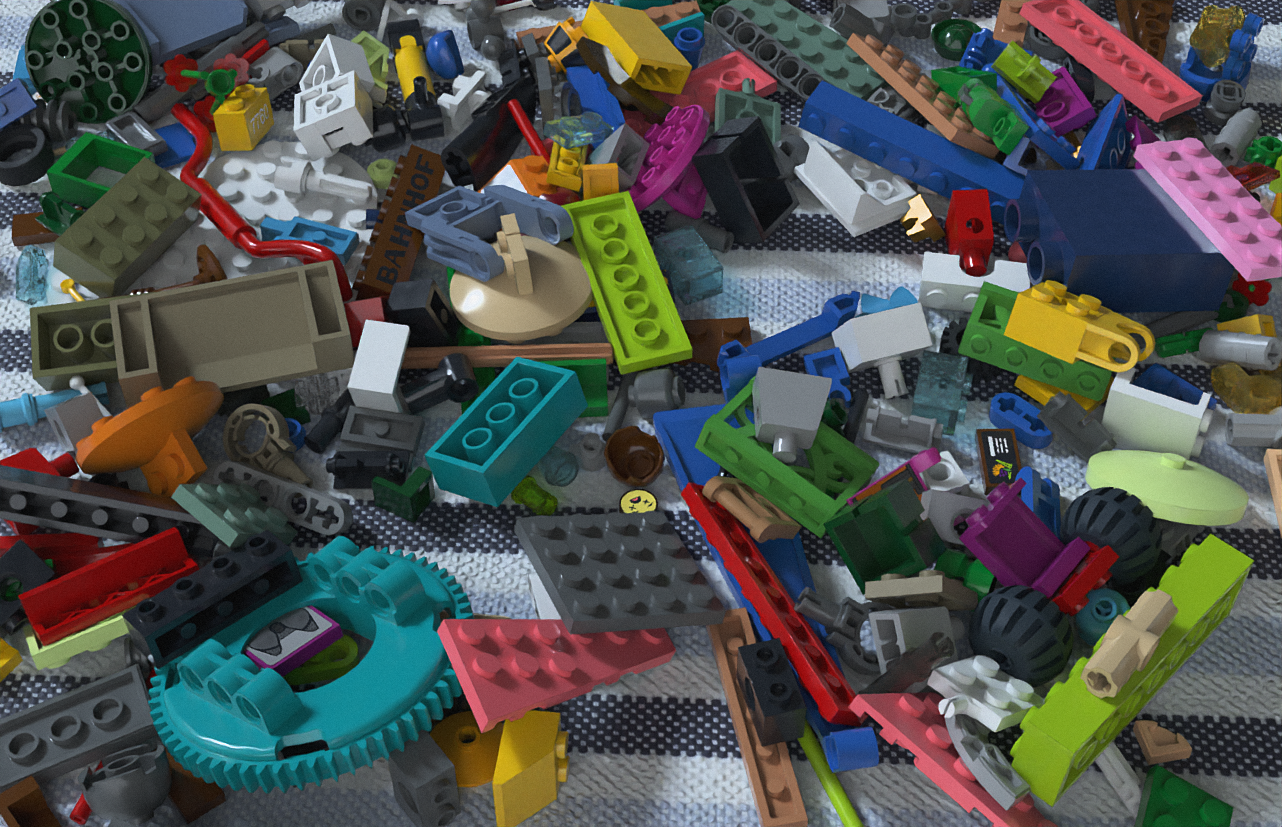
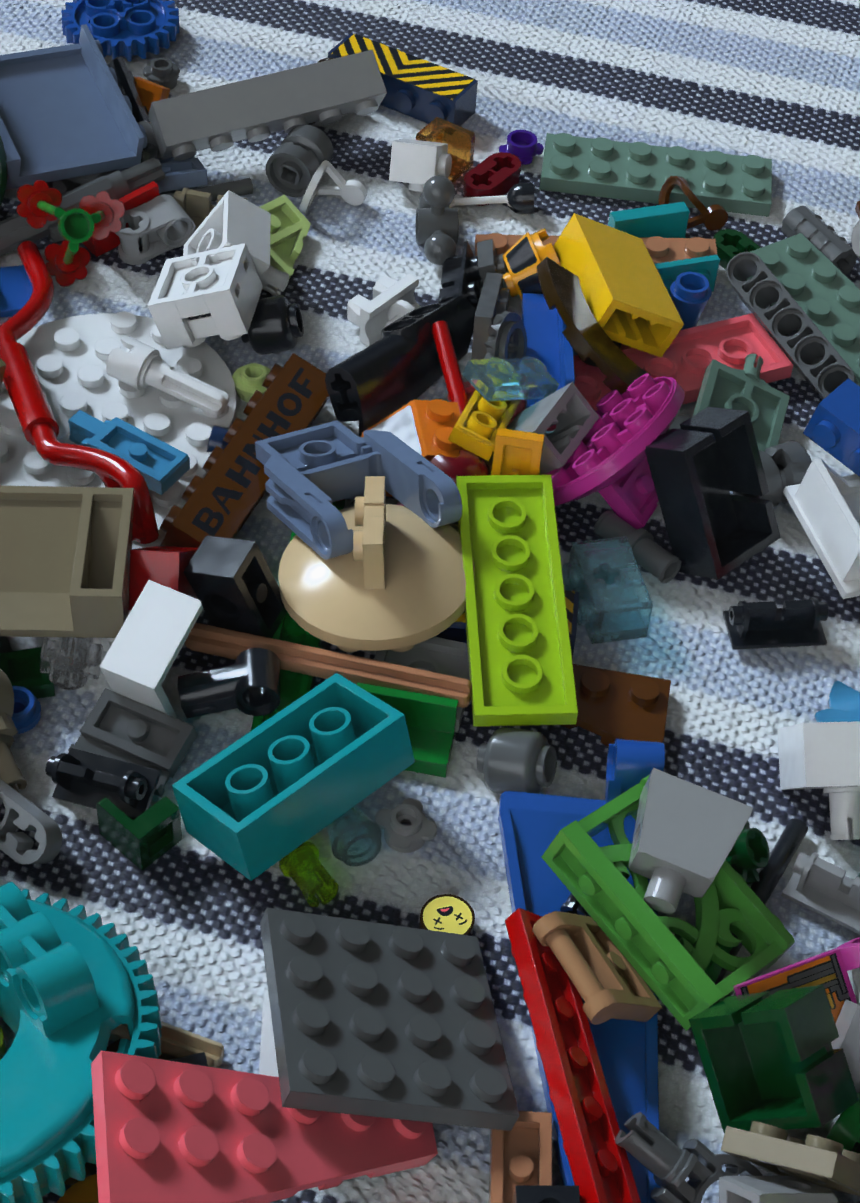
camera: 10 degrees right, 0 degrees up
(243, 118) = (98, 276): yellow brick -> none
(330, 424) = (71, 709): black axle -> none
(415, 80) = (329, 271): black piece -> none
(444, 55) = (376, 246): blue hair -> none
(620, 406) = (459, 774): dark grey bar -> none
(634, 457) = (459, 848): reddish brown hair -> none
(803, 266) = (766, 626): none -> black hinge
(830, 365) = (760, 783): blue plate -> none
(834, 314) = (790, 705): blue piece -> none

